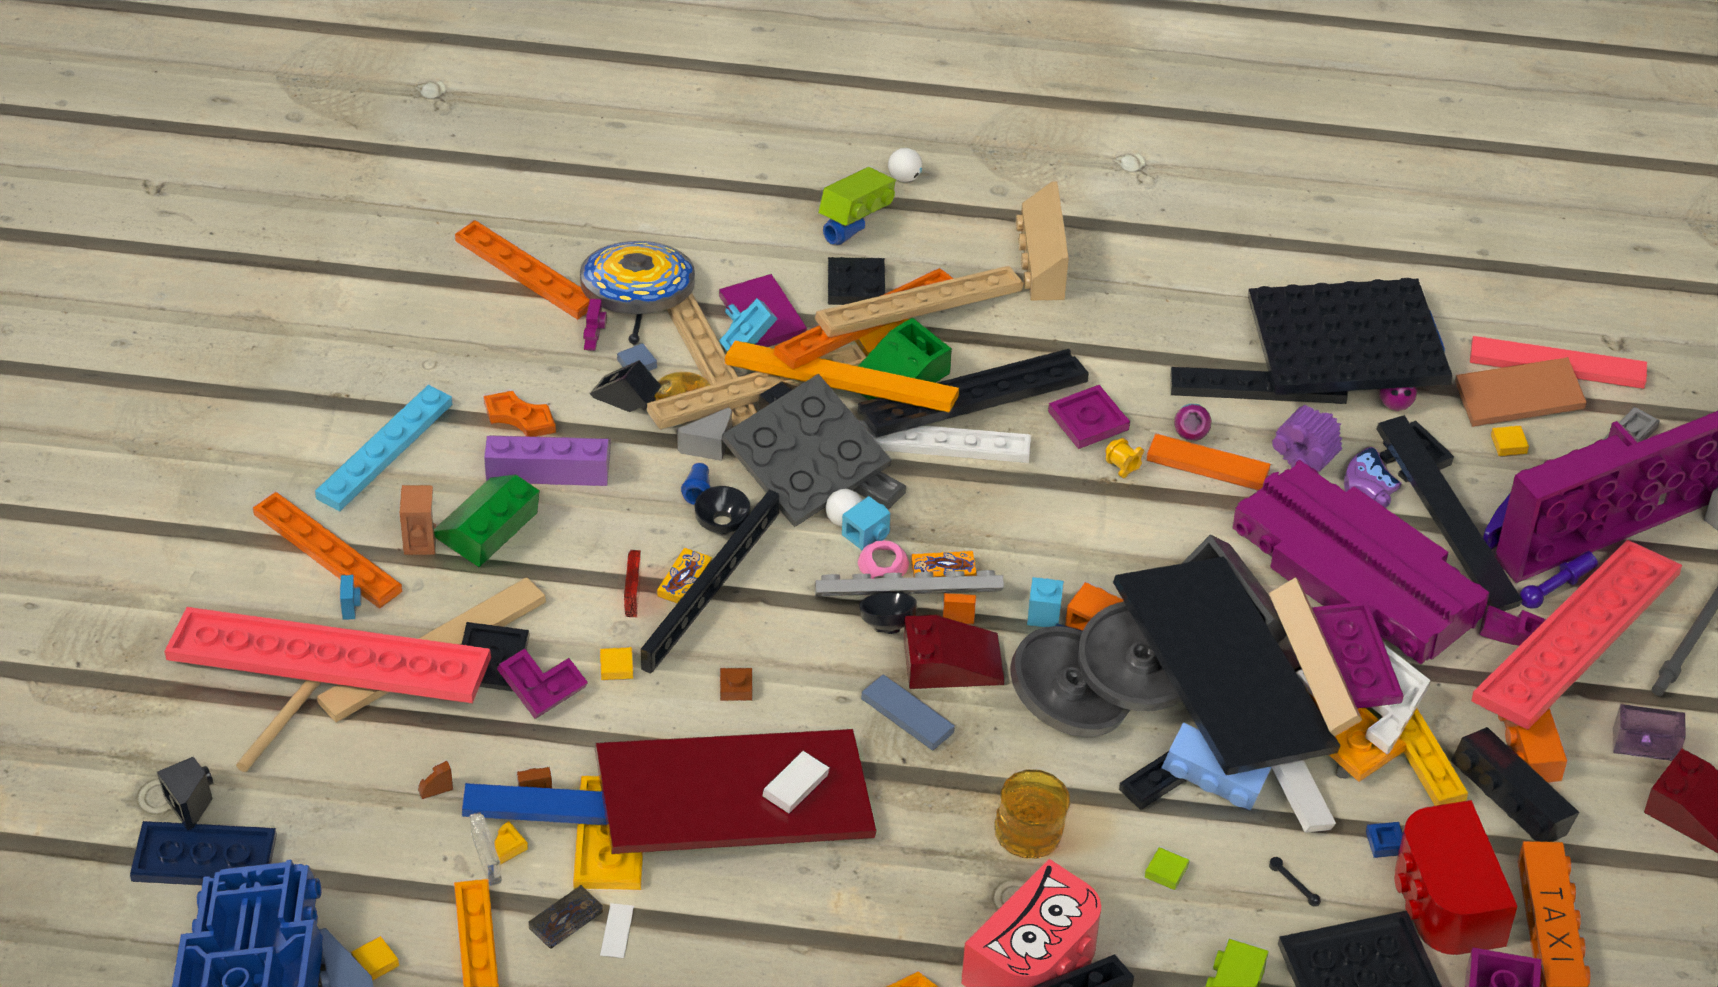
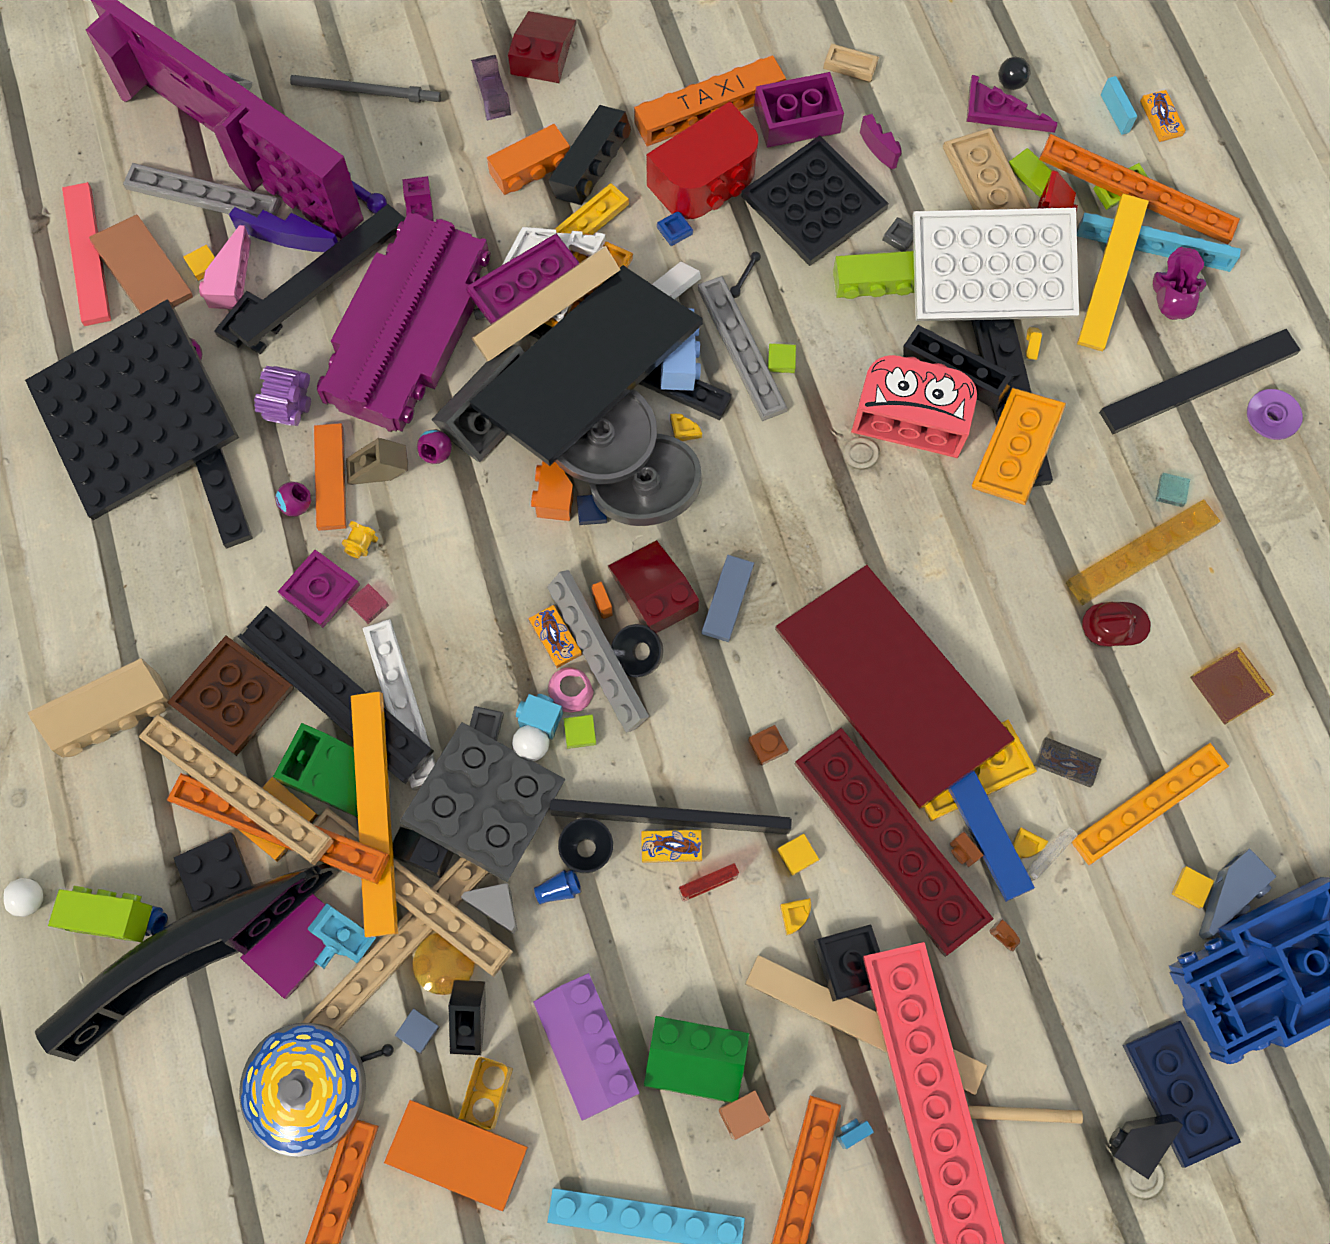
camera: 115 degrees left, 25 degrees up
(520, 352) = (456, 1155): none -> orange tile
(529, 418) = (539, 1125): orange tile -> none
(537, 689) = (866, 895): magenta plate -> none
(560, 381) = (496, 1096): none -> yellow piece
(563, 640) = (795, 914): none -> yellow tile
(570, 733) = (893, 842): none -> dark red plate
(595, 321) = (385, 1096): magenta plate -> none
(617, 930) = (1053, 719): white sticker -> none
(796, 782) = (863, 636): white tile -> none
(800, 245) = (176, 951): none -> black slope
(836, 552) = (579, 731): none -> lime tile
(1013, 329) = (231, 695): none -> reddish brown plate
(1031, 813) = (798, 454): clear yellow wheel -> none
(1045, 602) = (563, 535): medium azure brick -> none
(1055, 449) = (368, 603): none -> clear pink tile
(1123, 751) = (684, 428): none -> yellow tile
(1194, 535) = (434, 446): none -> magenta piece
(1199, 839) = (742, 348): none -> light grey tile
(1201, 496) = (377, 462): none -> dark tan slope
(1371, 477) = (294, 349): medium lavender arm -> none
(1484, 450) = (227, 272): none -> bright pink slope
(1576, 634) = (428, 147): coral plate -> none

